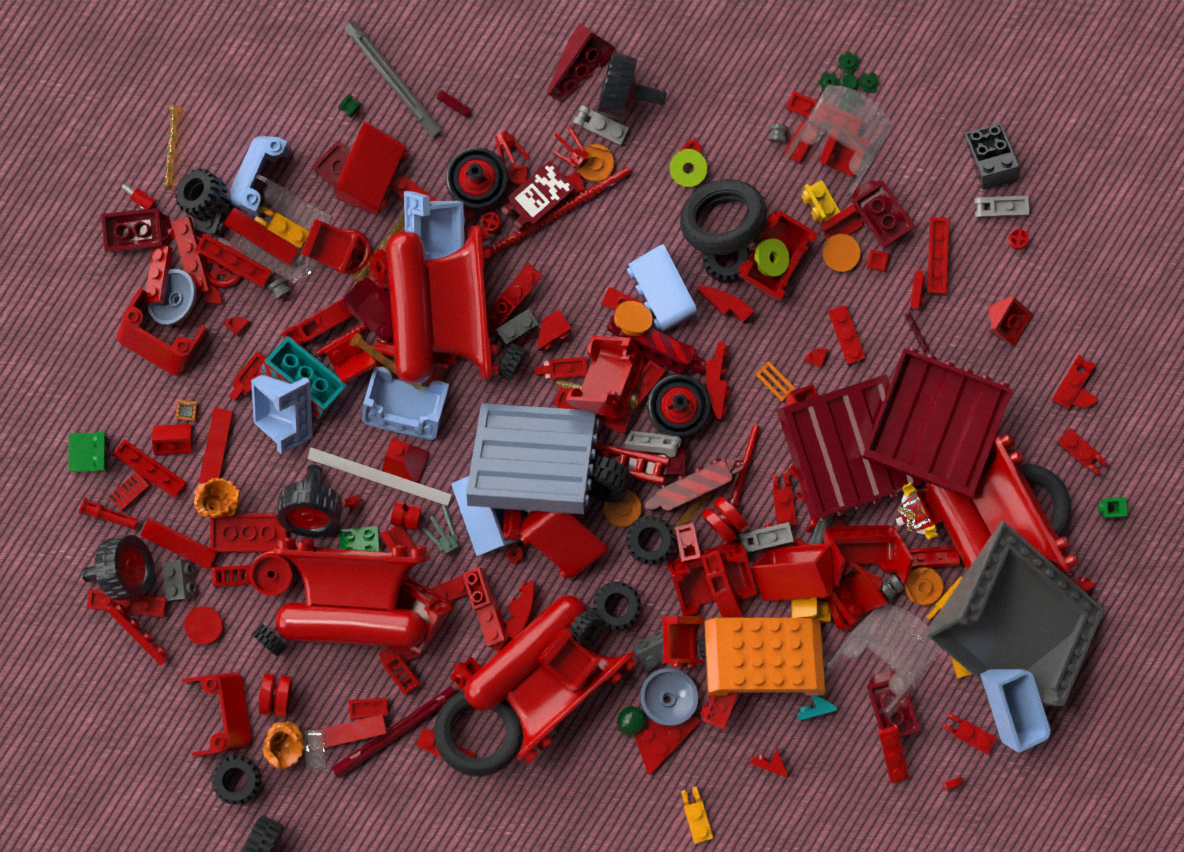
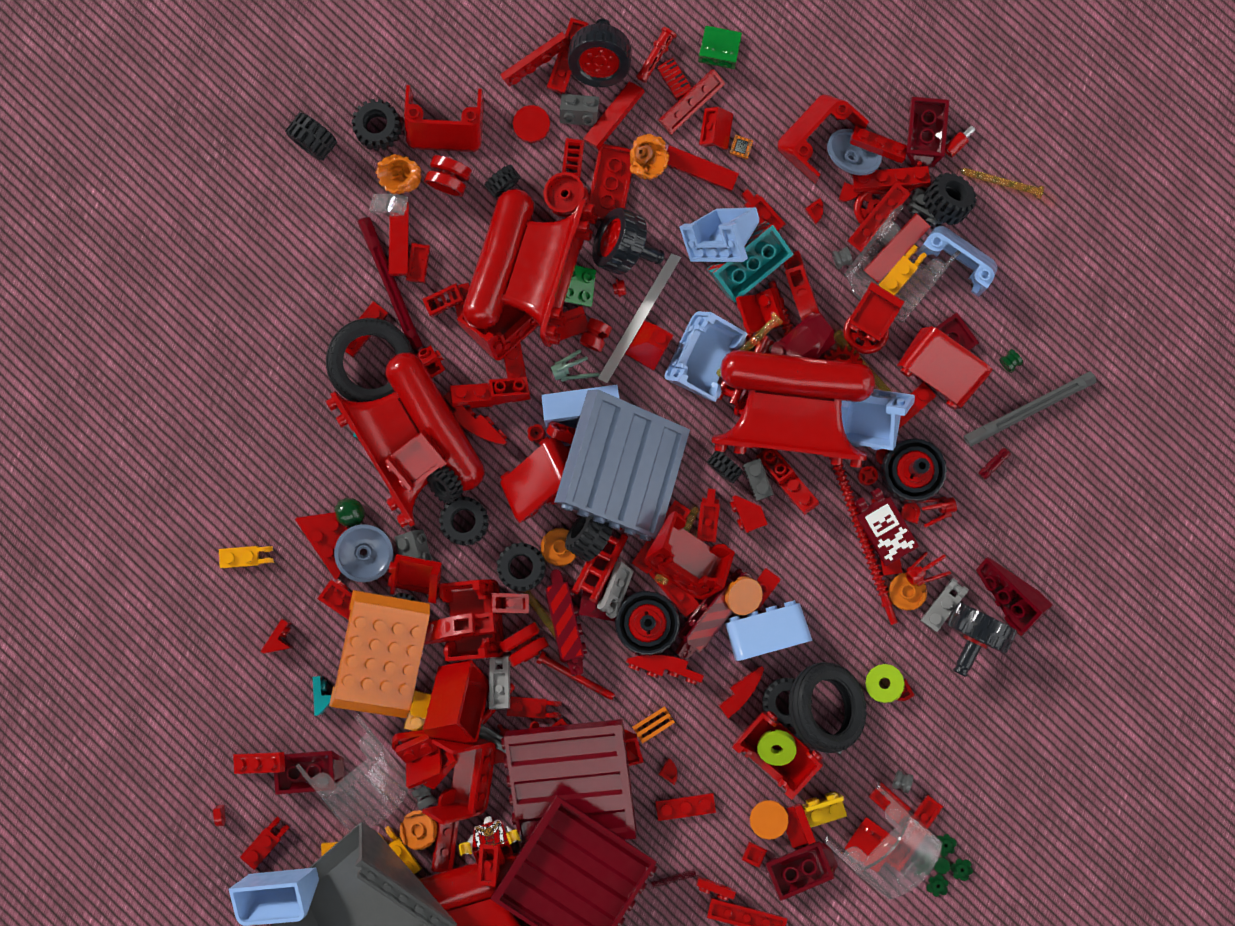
camera: 110 degrees right, 0 degrees up
(940, 506) = (489, 864): none -> red slope

